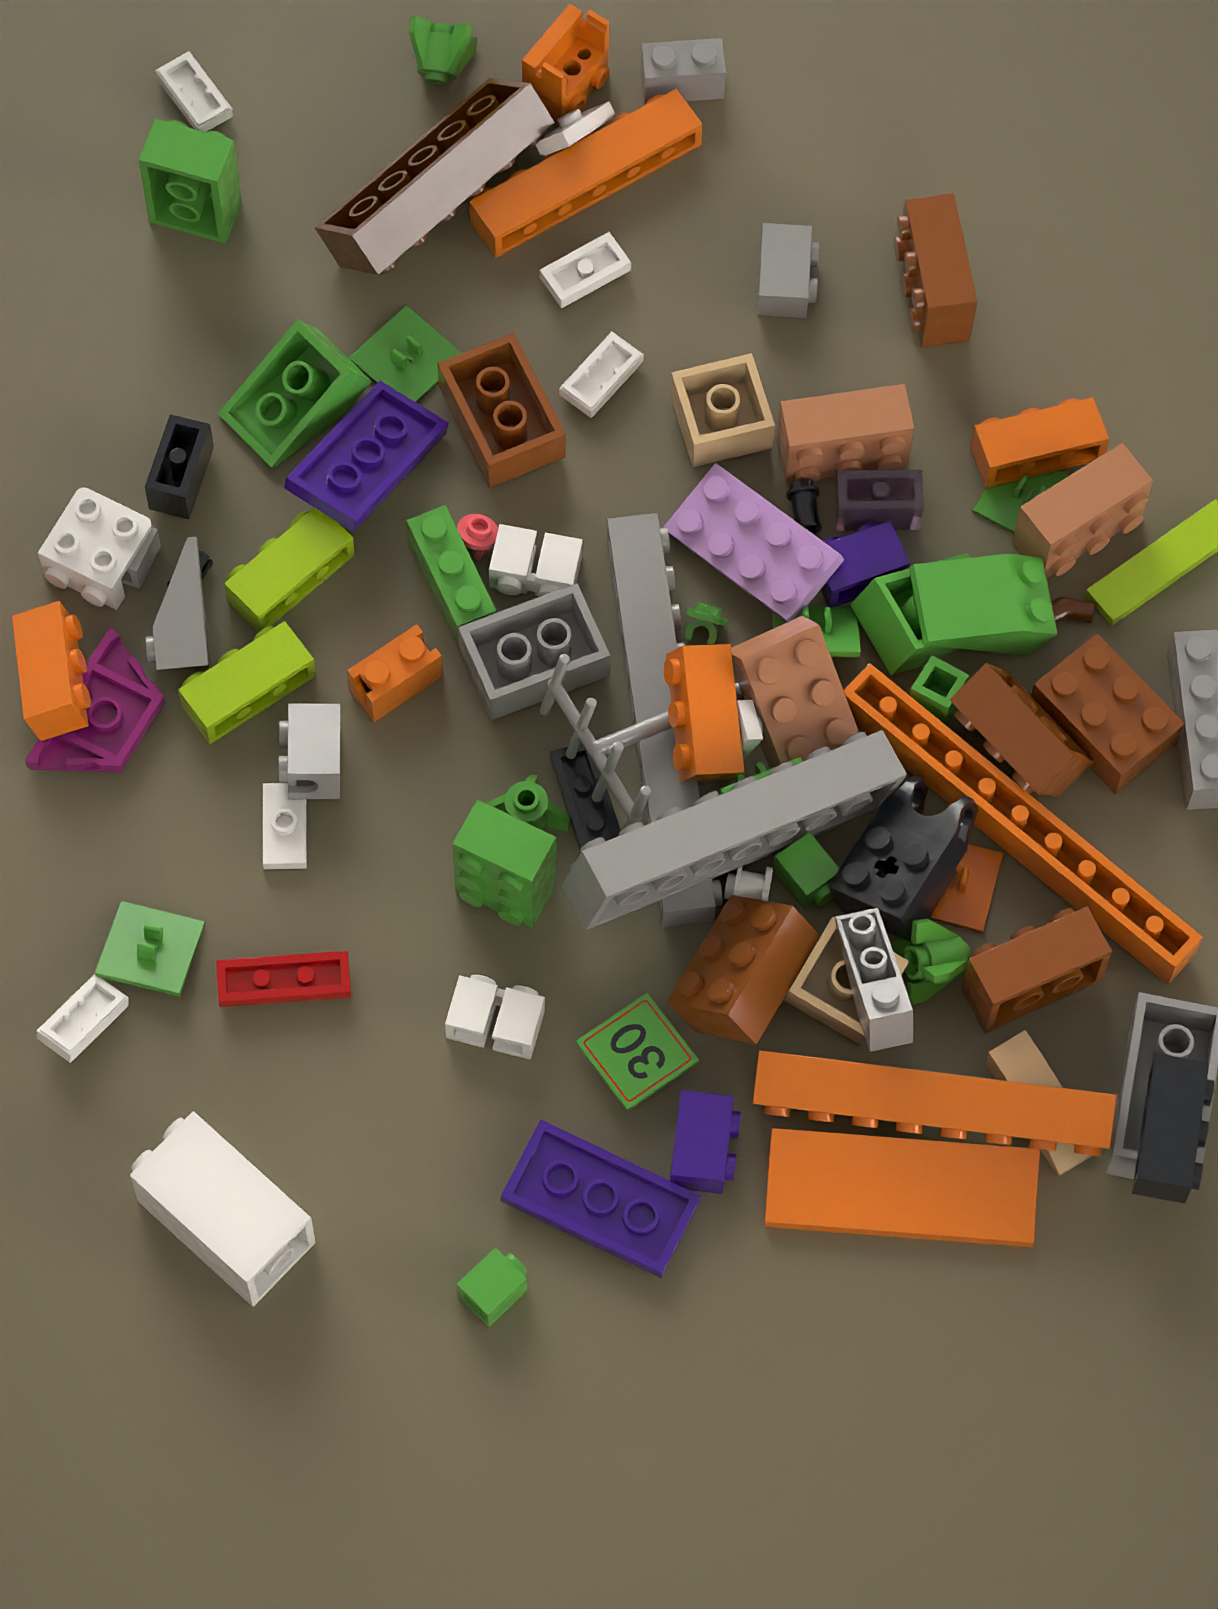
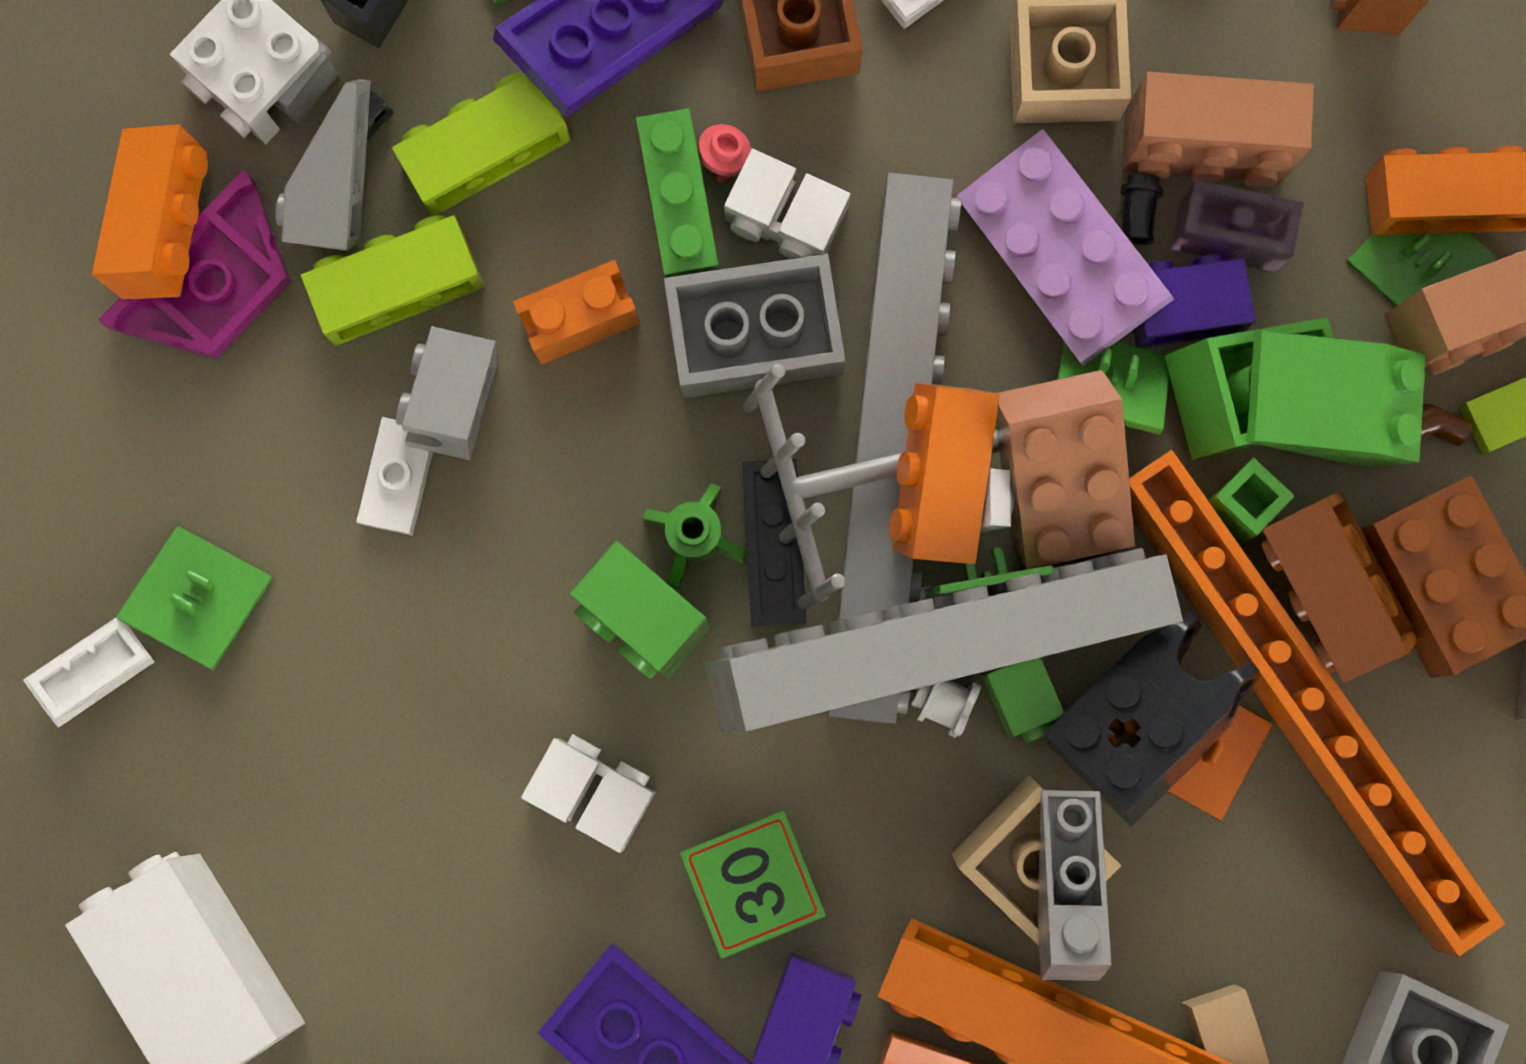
camera: 15 degrees right, 15 degrees up
(283, 978) = (344, 678): red plate -> none
(706, 616) = (983, 328): bright green plate -> none
(743, 969) = (911, 818): dark orange brick -> none
(933, 958) = (1153, 856): bright green brick -> none
(1035, 968) = (1280, 905): dark orange brick -> none

